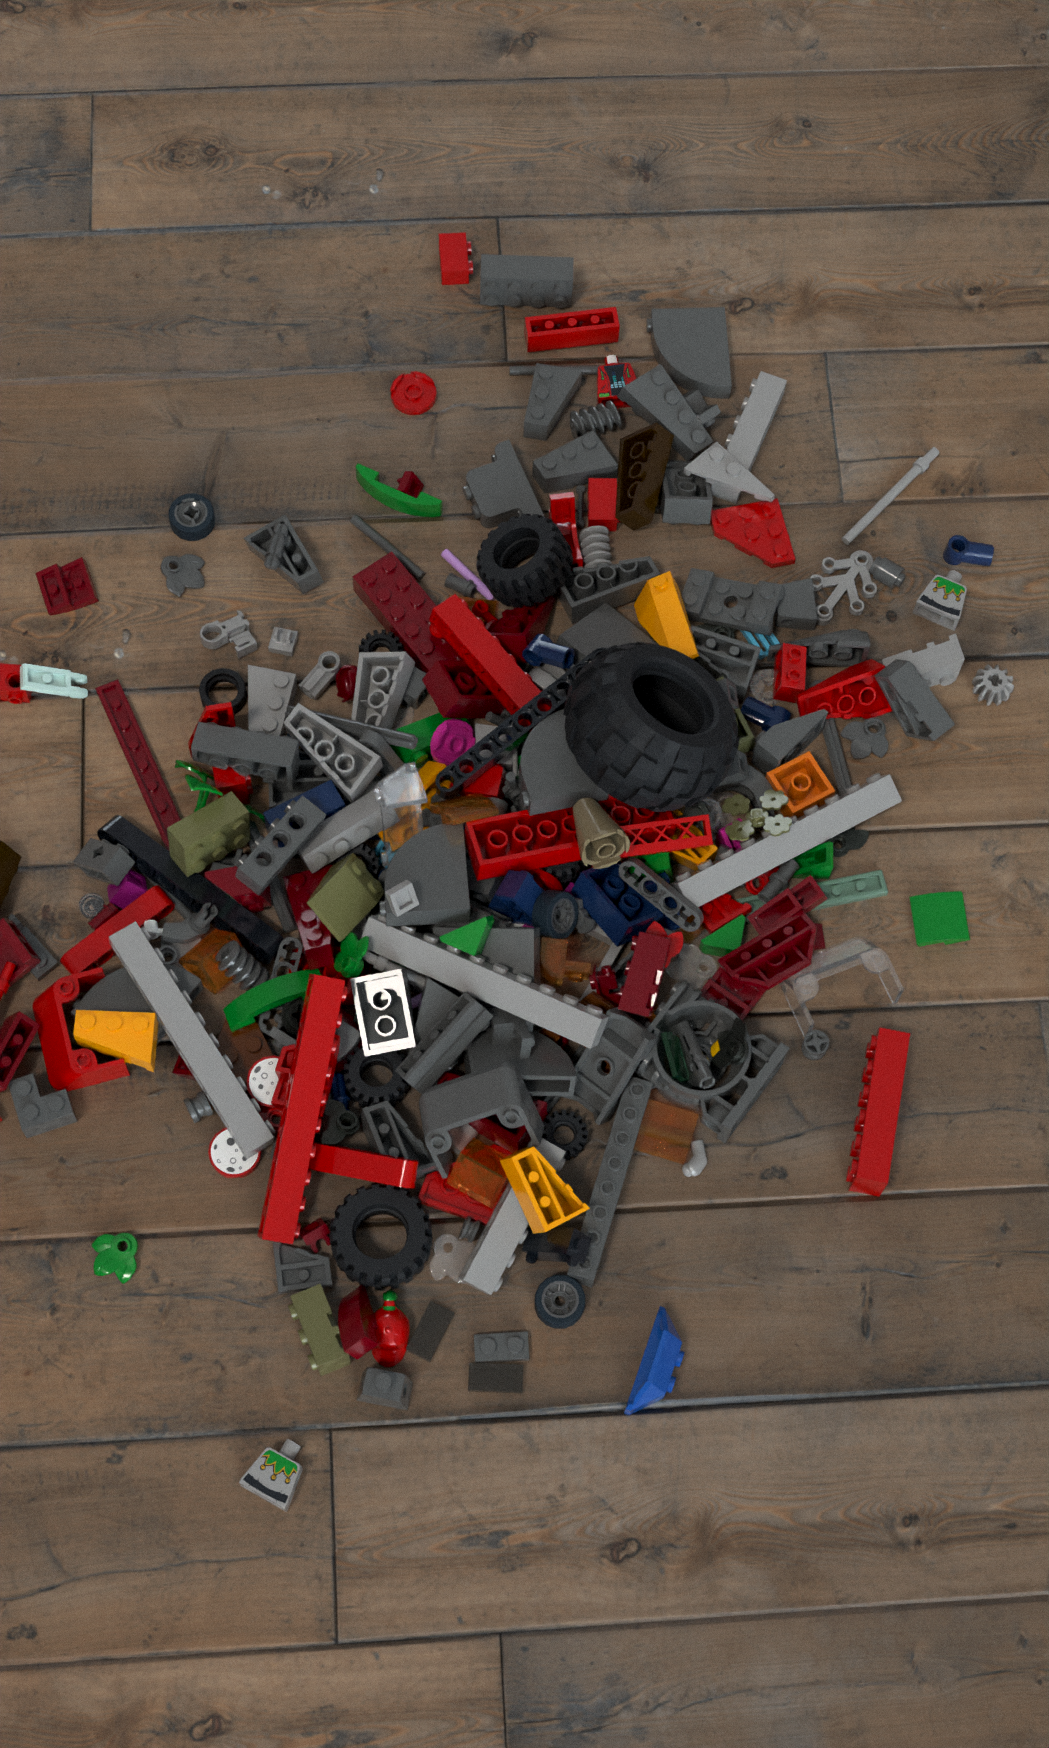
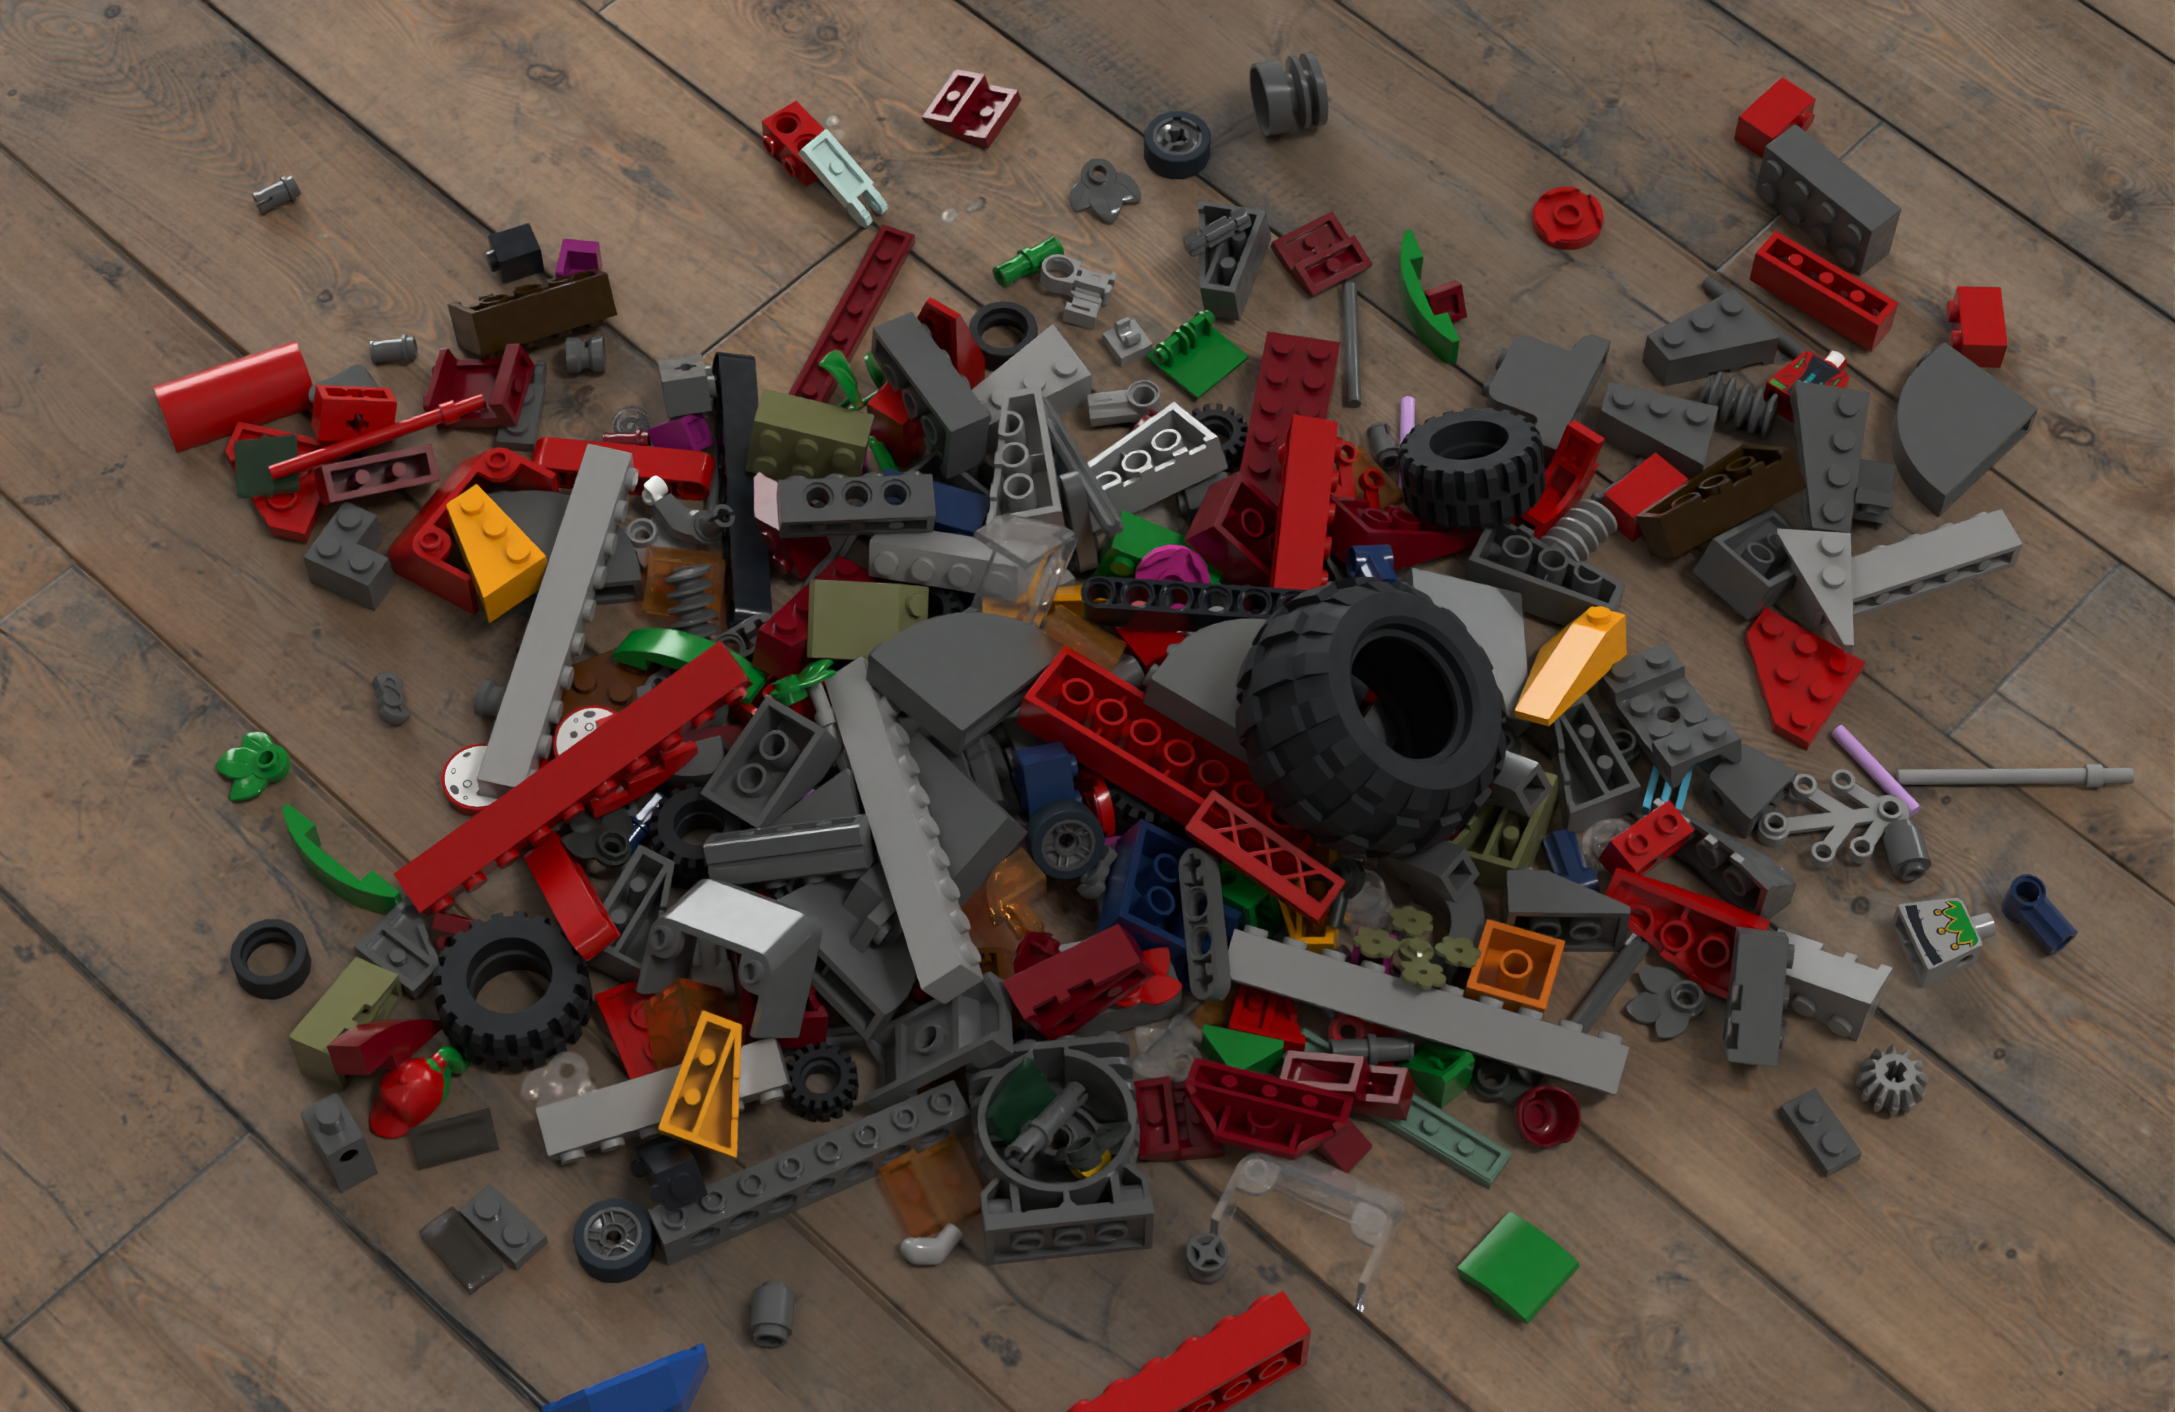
camera: 50 degrees right, 10 degrees down
(29, 891) = (585, 354): none -> dark grey wheel
(143, 1156) = (389, 697): none -> dark grey piece
(189, 643) = (1026, 262): none -> green pin
(221, 443) = (1281, 95): none -> dark grey wheel
(243, 1317) = (263, 933): none -> black tyre
(254, 1258) = (368, 893): none -> green slope
(275, 1475) = (138, 1116): light grey torso -> none
(323, 514) = (1320, 254): none -> dark red slope
(323, 618) = (1197, 355): none -> green hinge
(402, 898) = (898, 650): light grey tile -> none
(469, 1229) = (608, 1073): dark grey bush -> none
(470, 937) = (938, 767): green slope -> none
(598, 835) = (1182, 780): dark tan cone -> none
(652, 287) = (1978, 325): none -> red brick
(667, 1261) = (772, 1314): none -> dark grey brick
(831, 546) = (1874, 768): none -> lavender bar
(881, 838) = (1547, 1116): none -> dark red hair
(987, 736) = (1820, 1132): none -> dark grey plate

